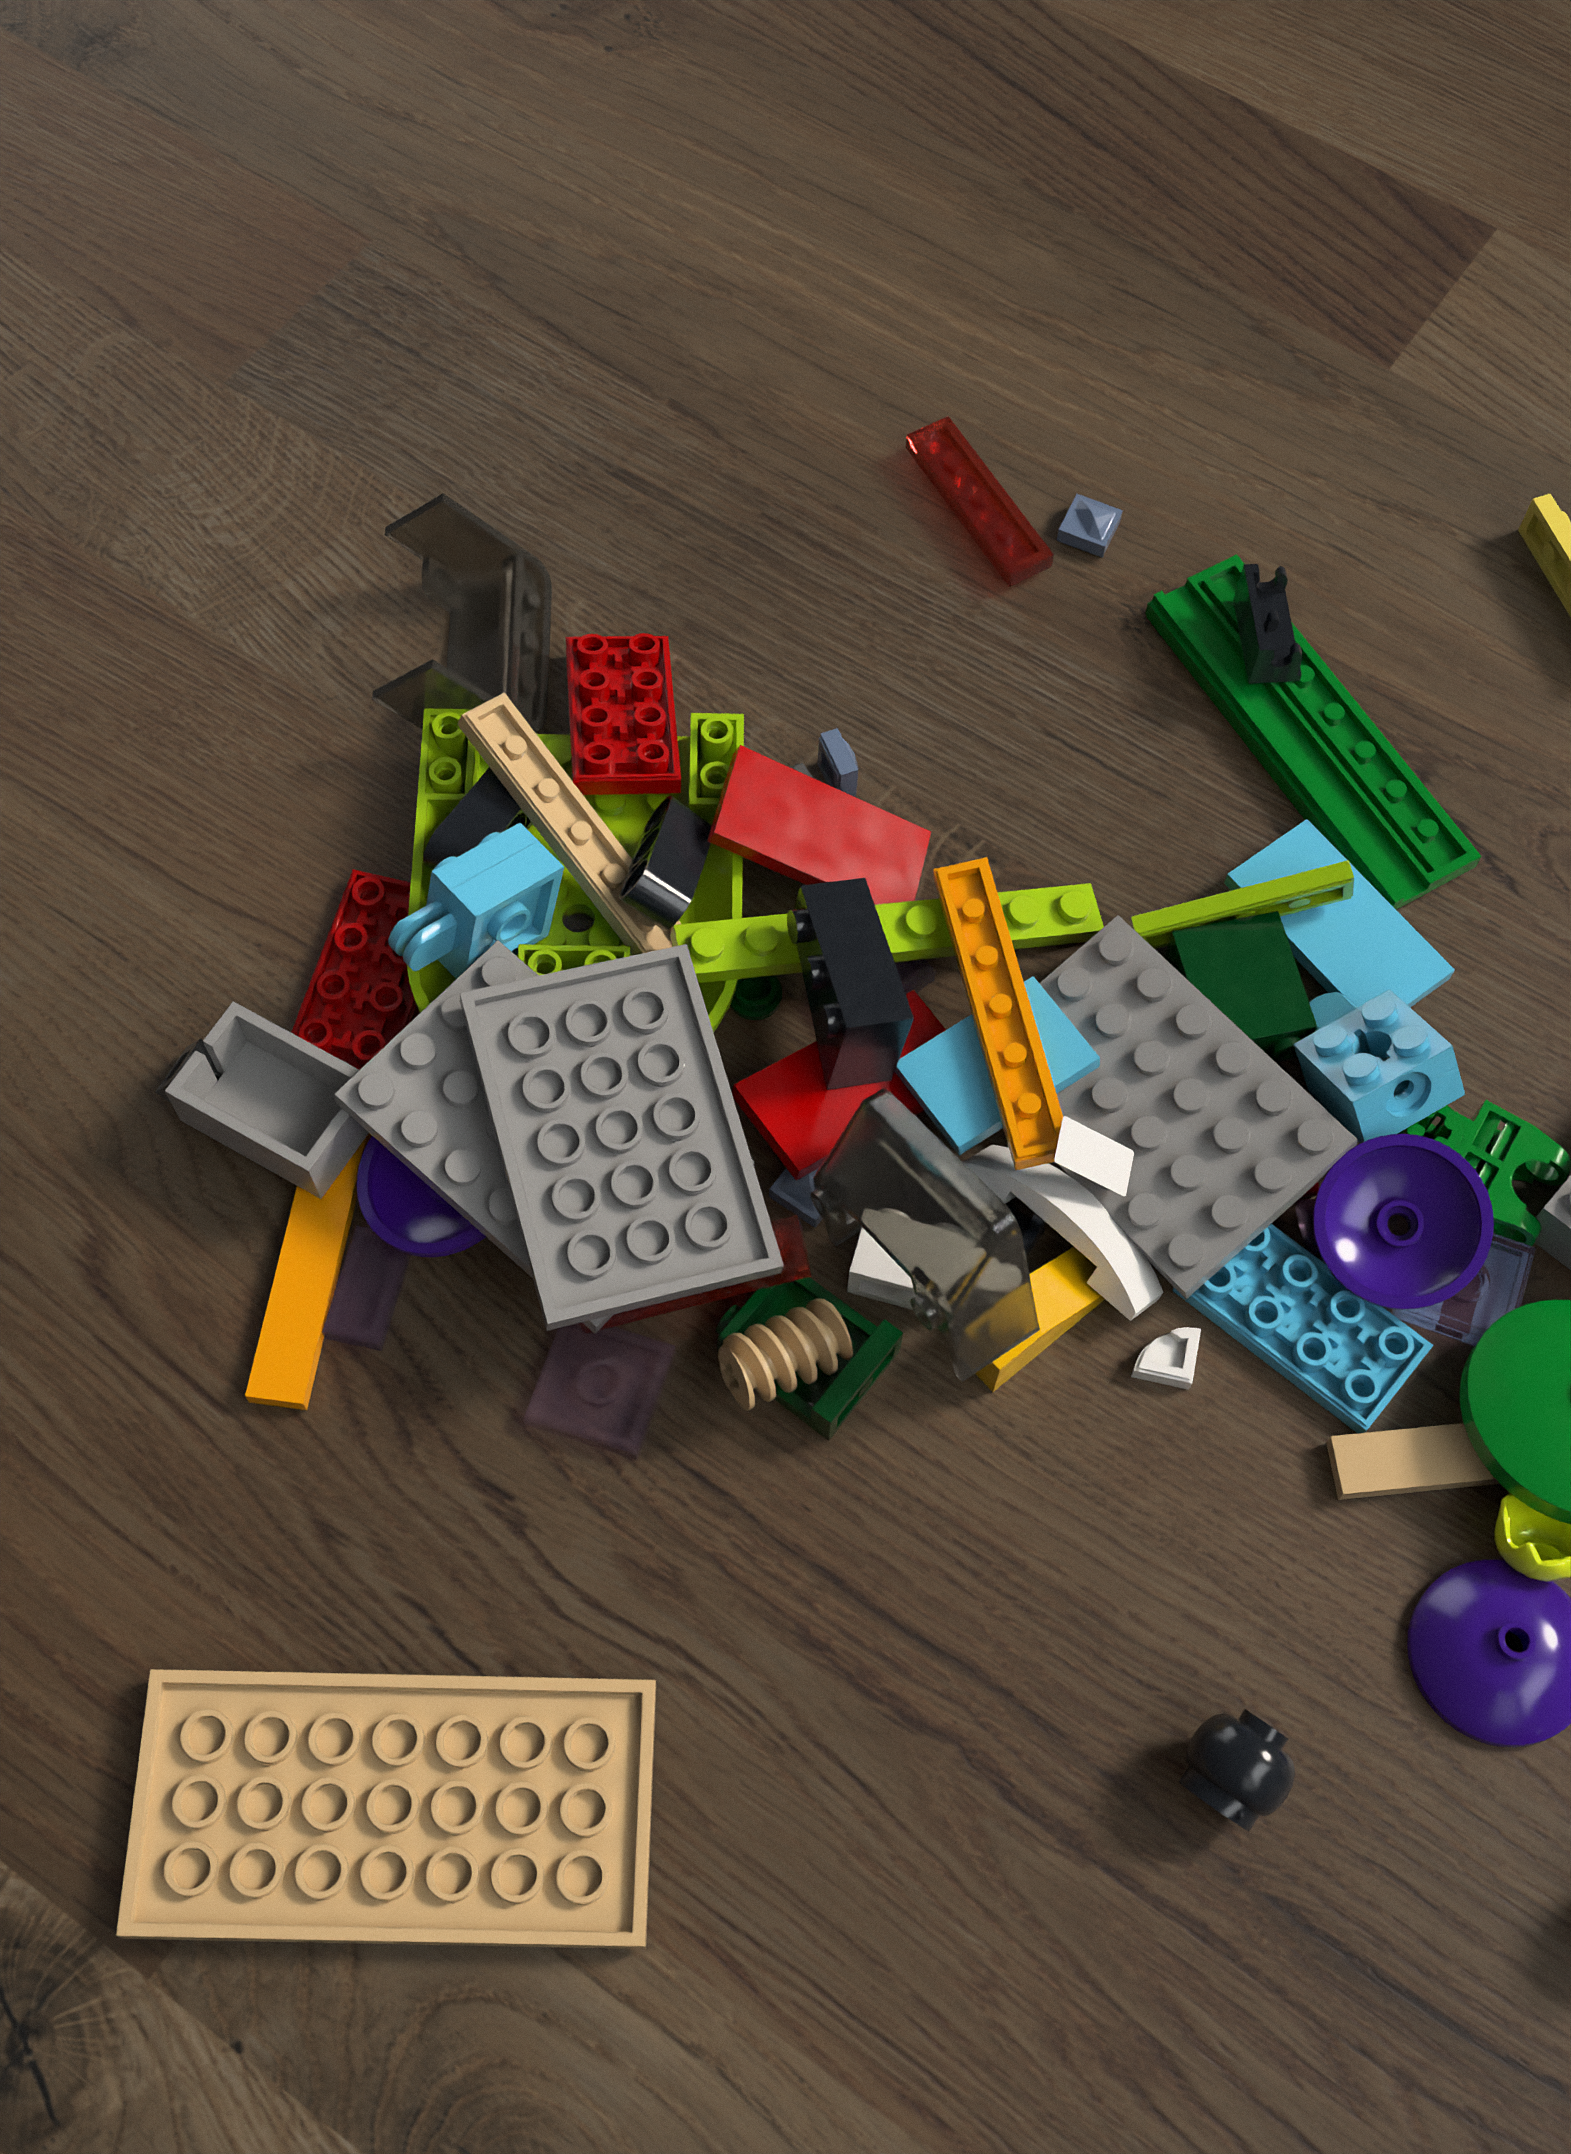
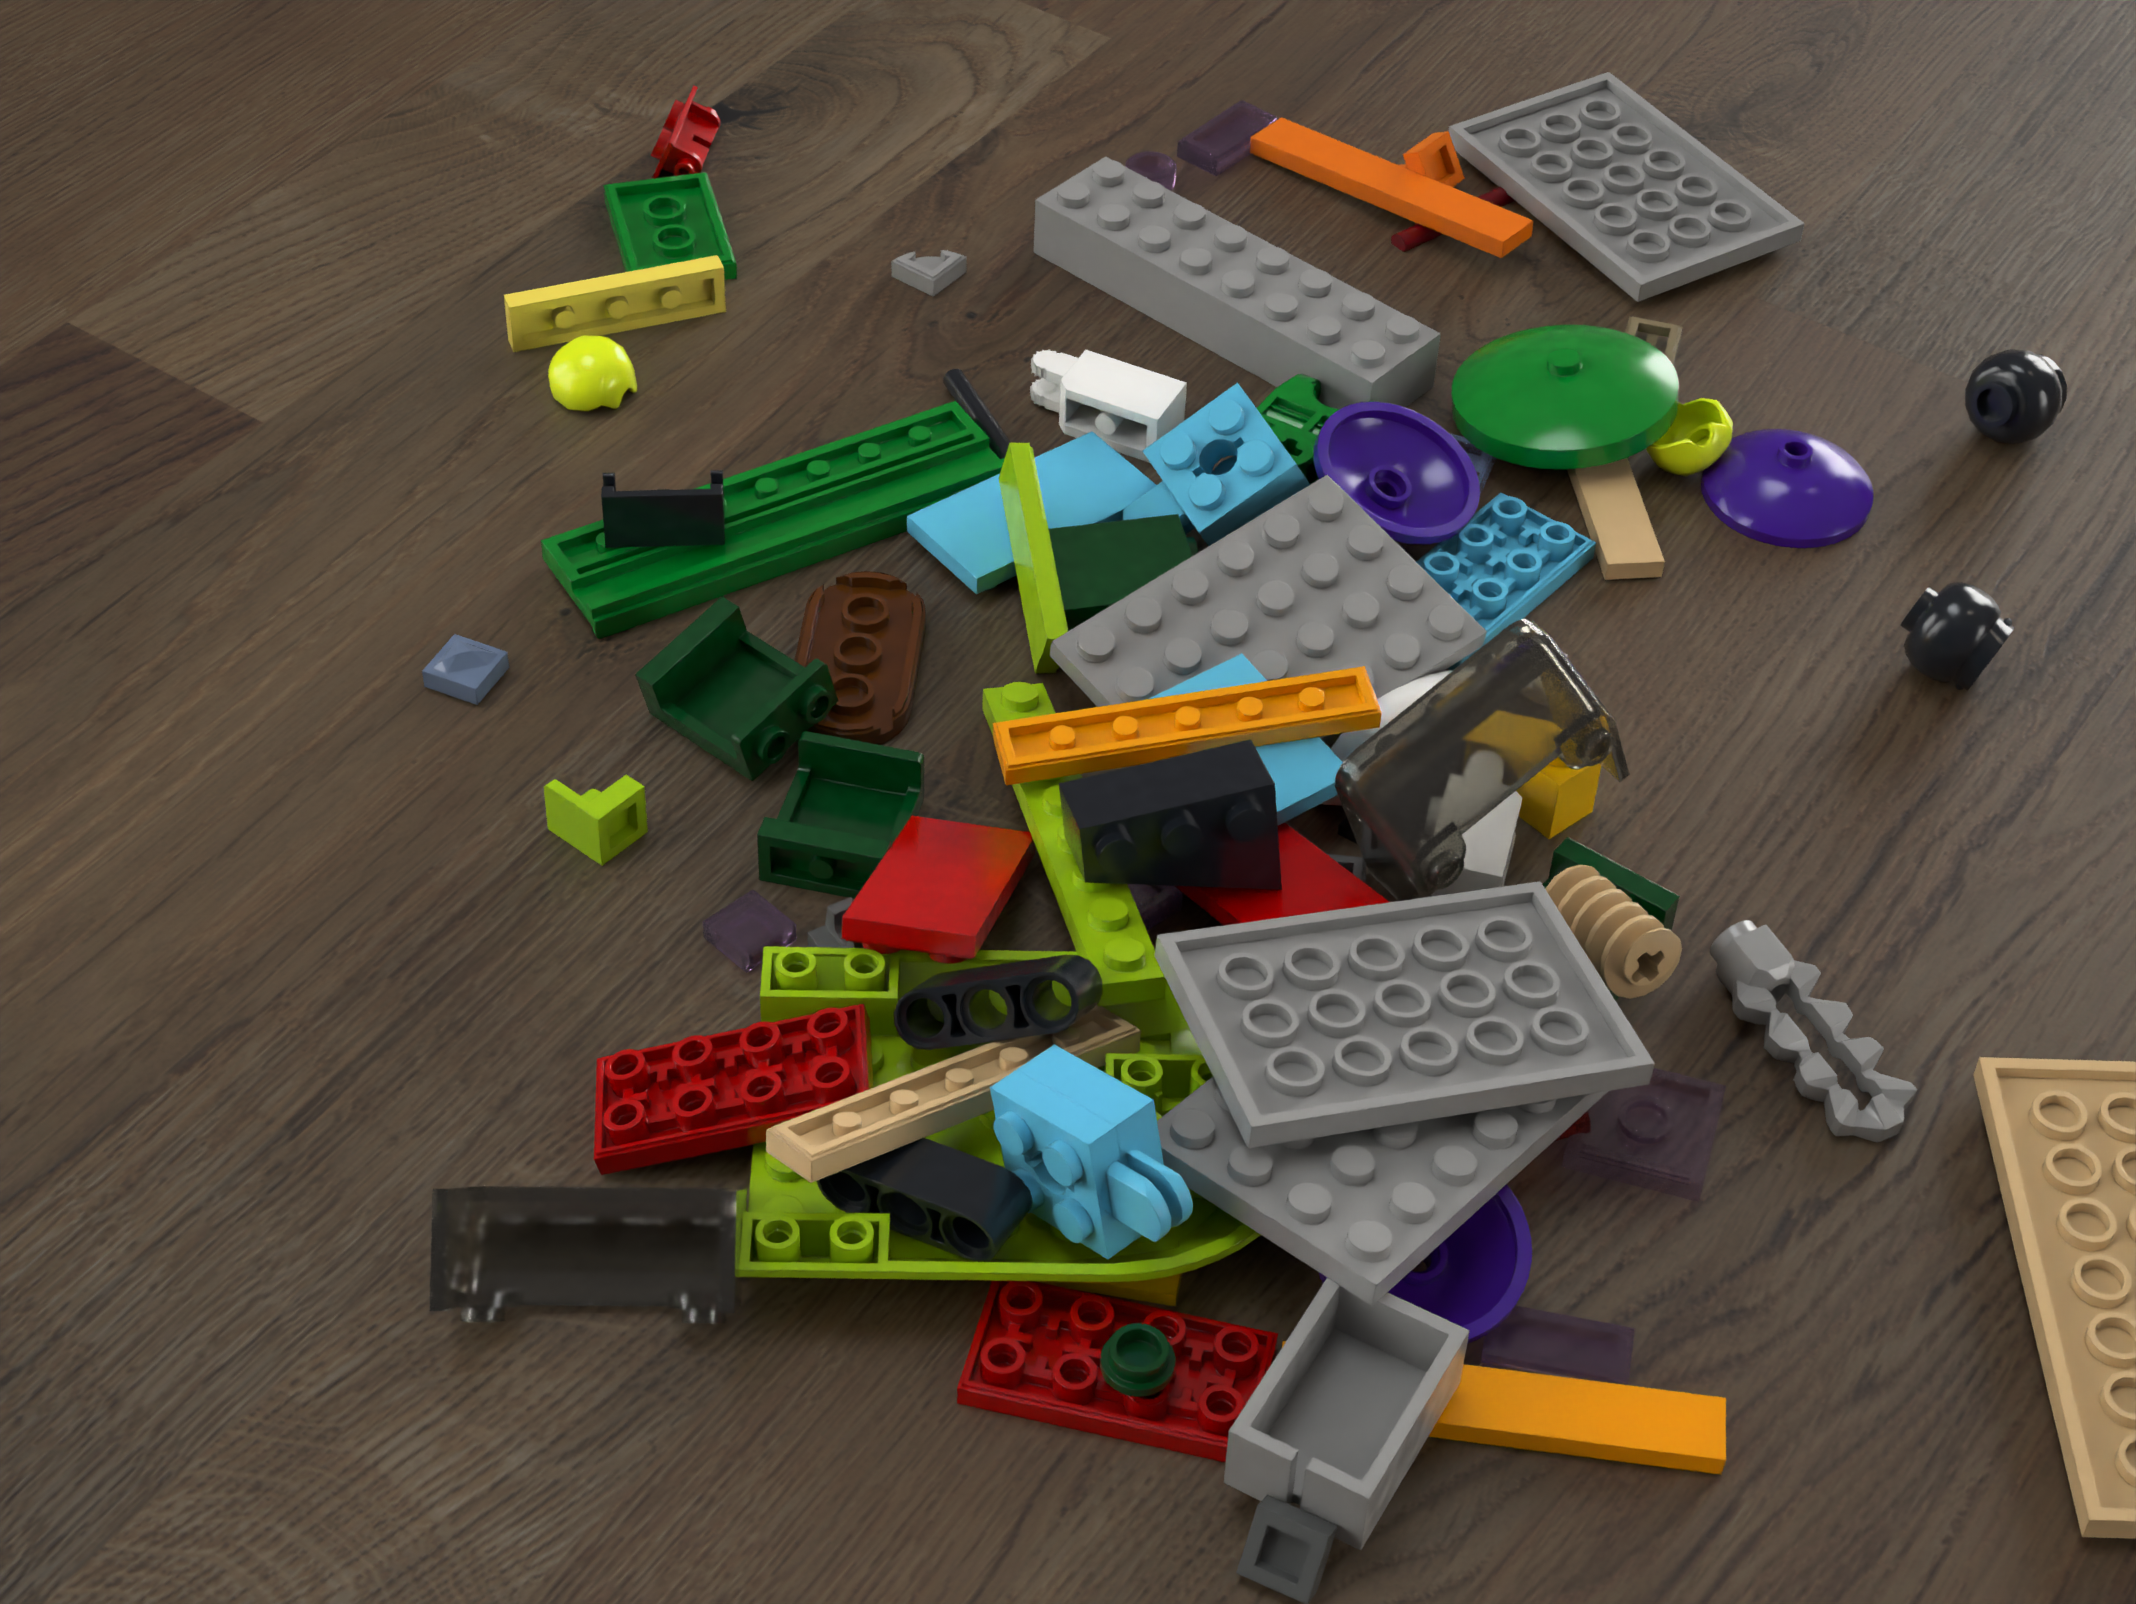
camera: 90 degrees left, 20 degrees down
(342, 969) = (1137, 1360): none -> dark green plate
(764, 1501) = (1758, 975): none -> light grey sword
(801, 728) = (746, 928): none -> clear purple tile
(837, 762) = (814, 886): sand blue tile -> none
(917, 620) = (597, 821): none -> lime panel
(930, 782) = (840, 814): none -> dark green panel
(979, 501) = (416, 757): clear red plate -> none
(1063, 699) = (735, 691): none -> dark green panel
(1093, 1156) = (1363, 660): white sticker -> none
(1132, 796) = (873, 645): none -> reddish brown tile
(1472, 890) = (973, 405): none -> black bar
(1480, 581) = (591, 373): none -> neon yellow hair
(1507, 992) = (1110, 397): none -> white hinge

